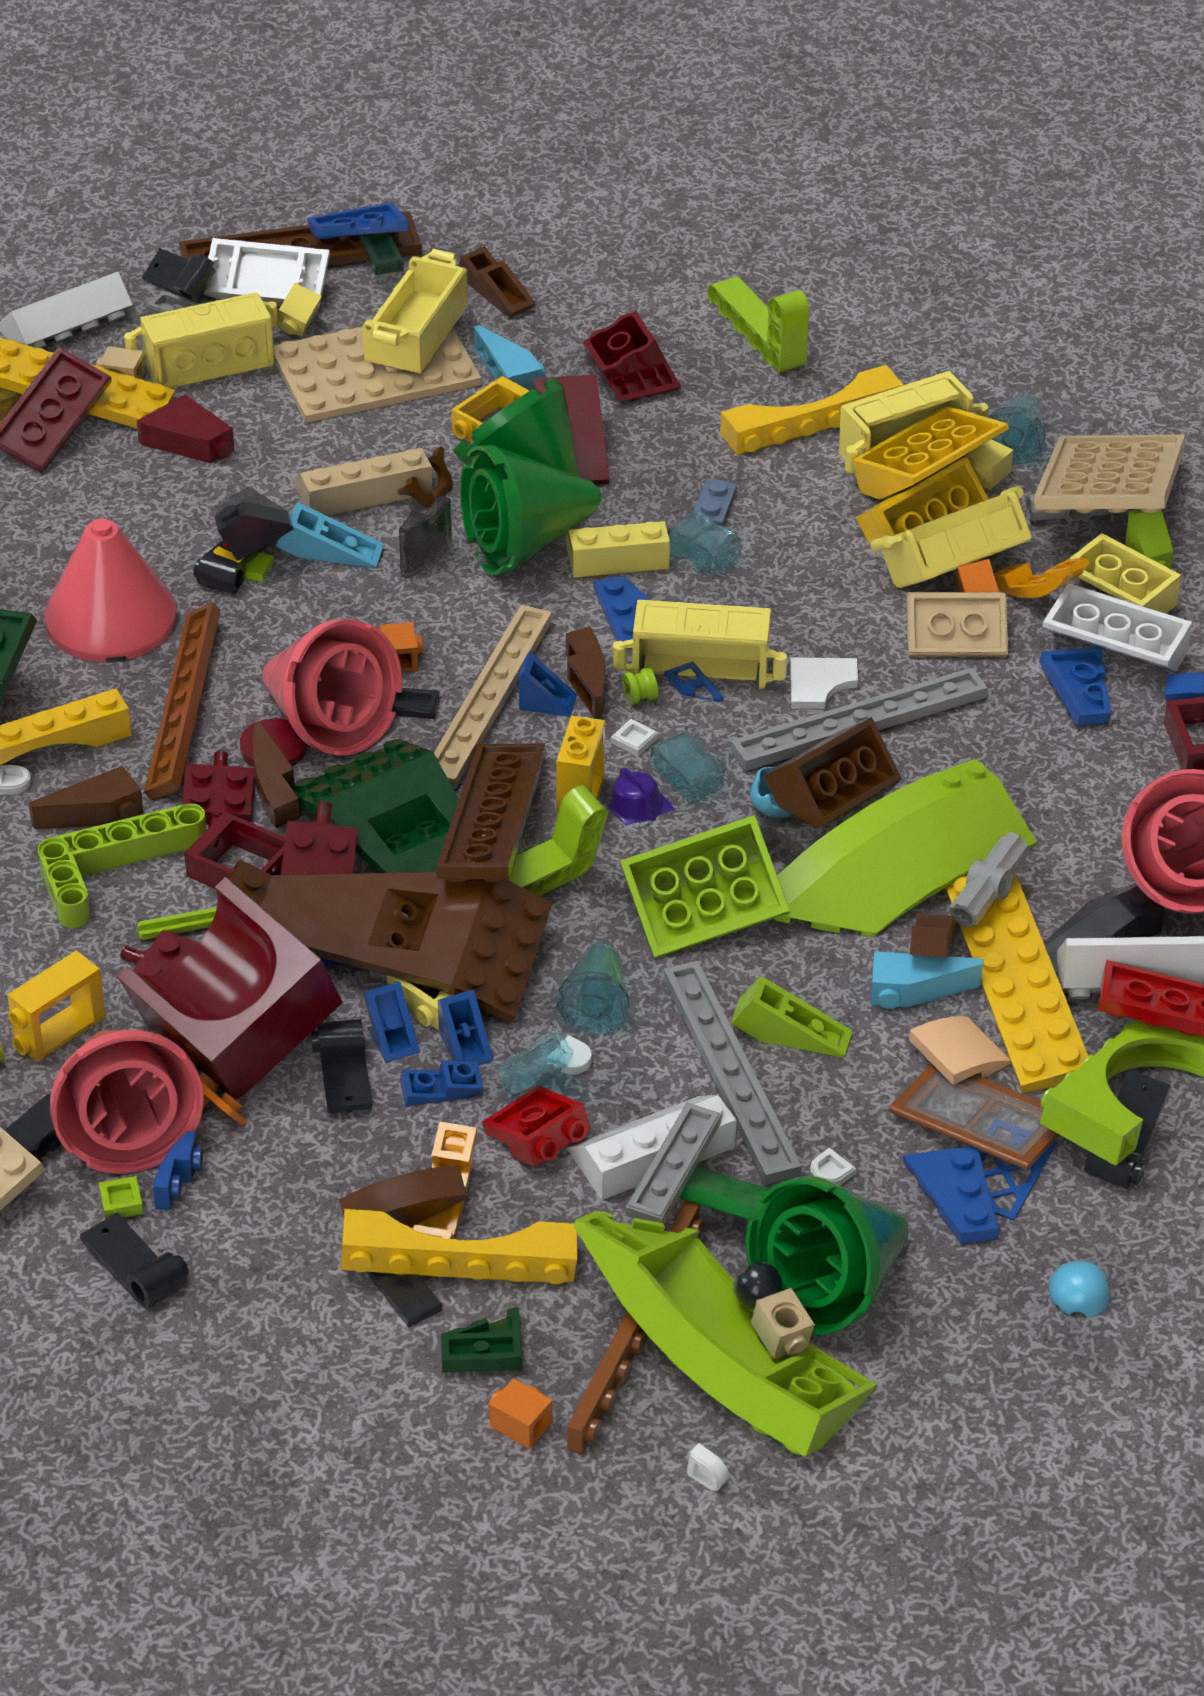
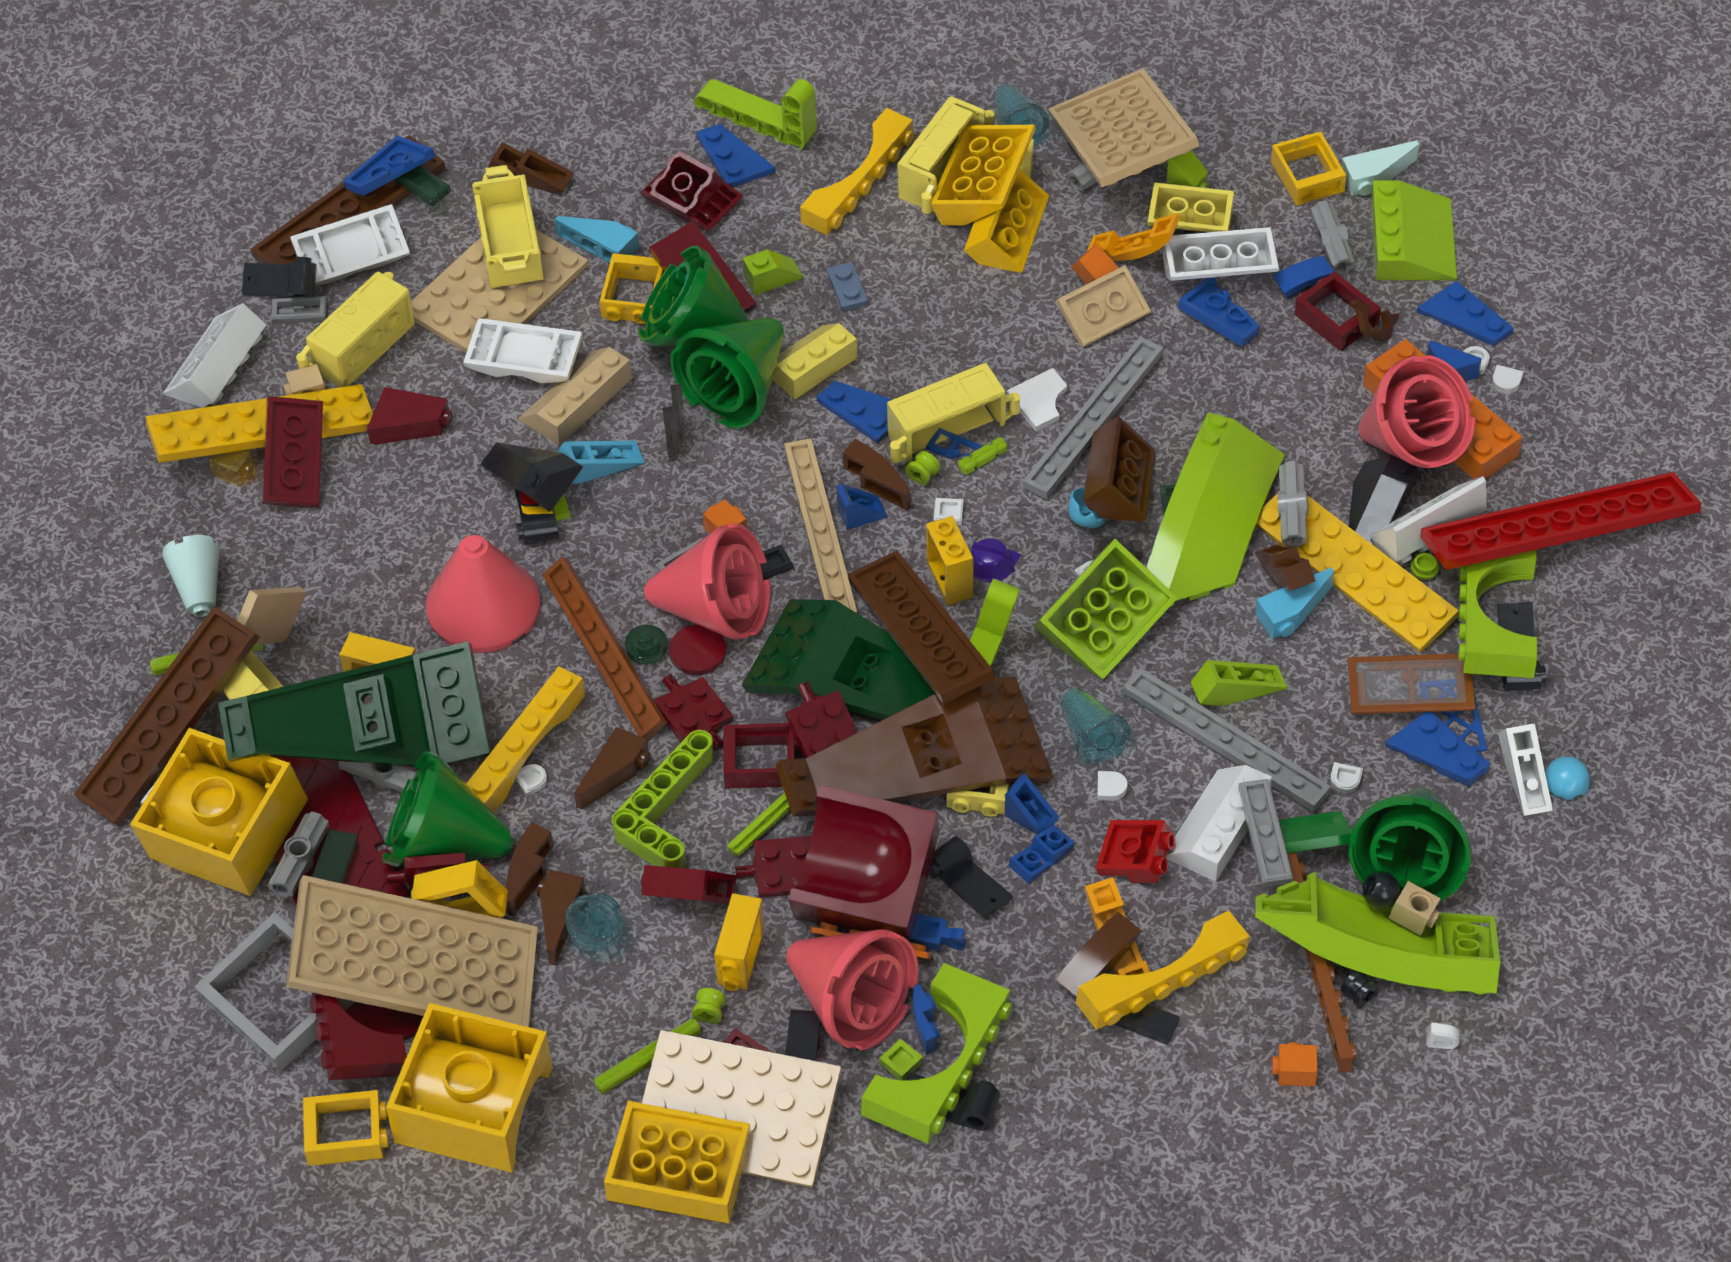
camera: 30 degrees left, 10 degrees up
(60, 932) = (688, 884): none -> dark red slope
(96, 1243) = (921, 1104): none -> lime arch
(226, 715) = (646, 644): none -> clear green plate
(263, 1098) = (934, 931): none -> blue plate
(274, 779) = (729, 679): reddish brown slope -> none
(298, 310) = (404, 266): light yellow brick -> none
(340, 419) = (522, 350): none -> white slope
(390, 1022) = (975, 827): blue slope -> none
(444, 481) = (637, 369): reddish brown helmet -> none
(484, 1345) = (1232, 1030): dark green wing -> none
(526, 1068) = (1105, 800): clear light blue brick -> none
(646, 455) = (769, 270): none -> lime slope
(657, 1375) = (1359, 988): none -> black wheel
(687, 767) = (1008, 517): clear light blue brick -> none
(703, 352) = (732, 157): none -> blue wing
(704, 543) = (872, 324): clear light blue brick -> none
(714, 704) = (982, 455): none -> lime axle
(955, 539) = (1056, 236): light yellow container -> none
(958, 1048) = (1359, 643): light nougat slope -> none
(1036, 1253) = (1526, 768): none -> white slope
(1092, 1016) = (1424, 566): none -> lime plate

